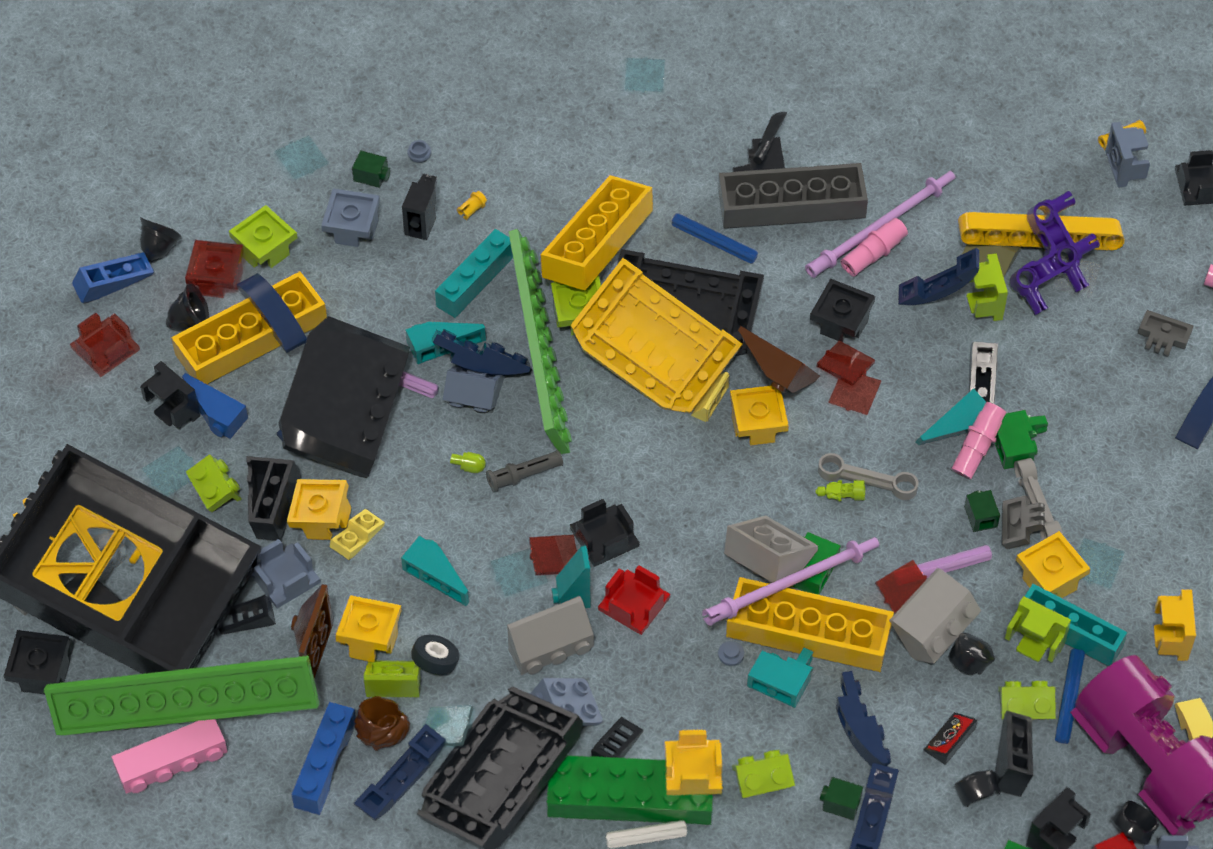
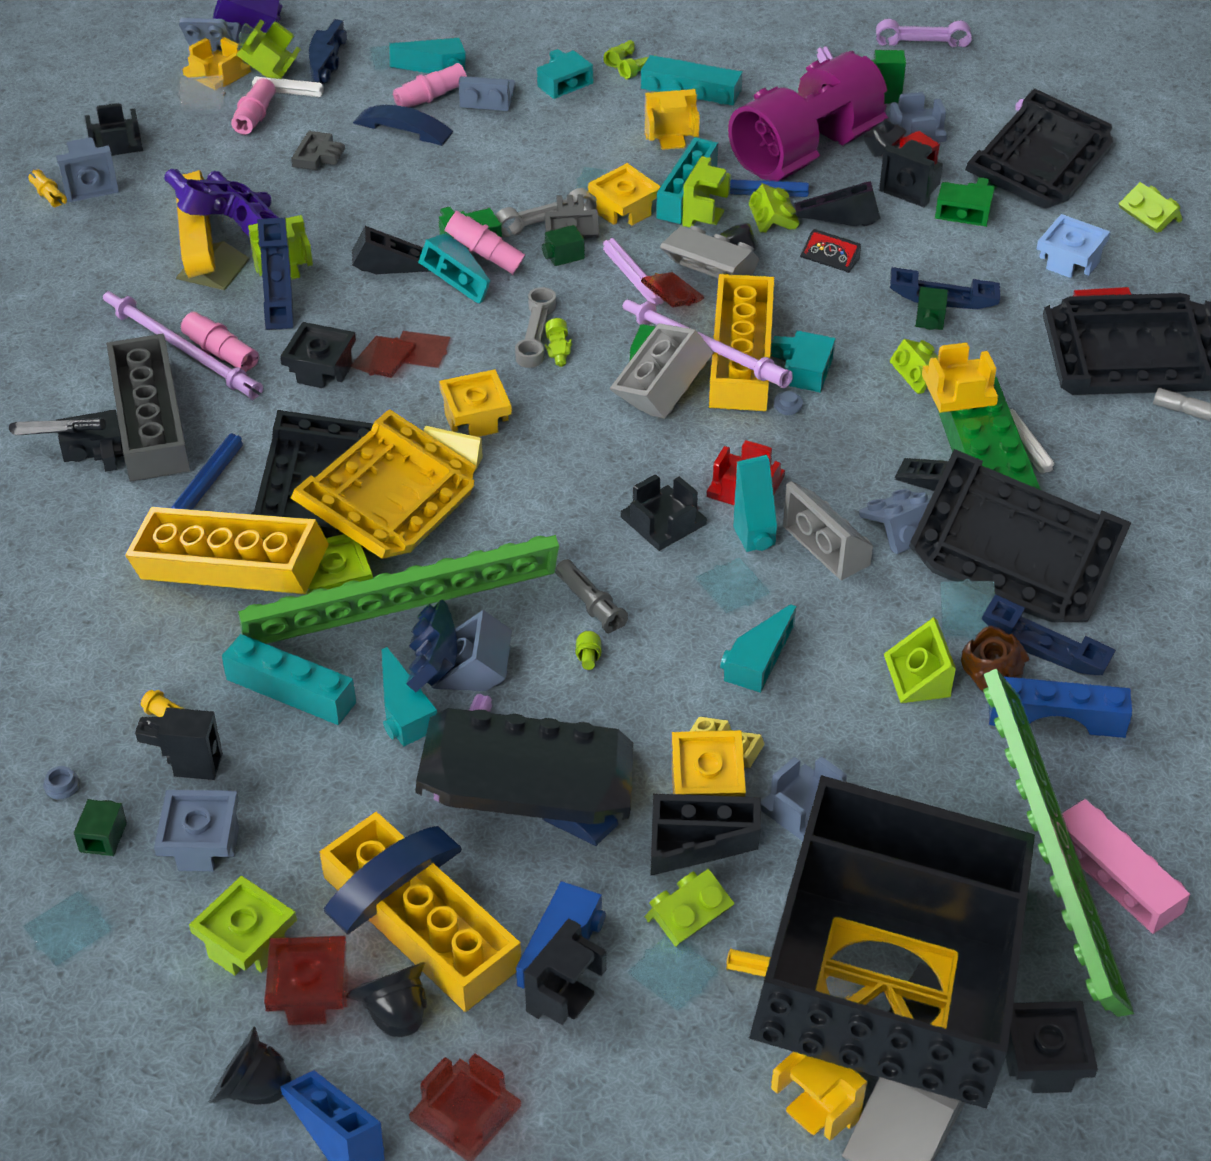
camera: 100 degrees left, 10 degrees down
(313, 627) = (913, 728): reddish brown slope -> none
(368, 627) = (870, 689): yellow panel -> none
(435, 654) = (880, 629): black bush -> none
(551, 553) = (702, 556): clear red piece -> none
(778, 365) = (419, 374): reddish brown slope -> none
(859, 727) = (845, 306): dark blue slope -> none
(977, 786) = (886, 225): black hair -> none

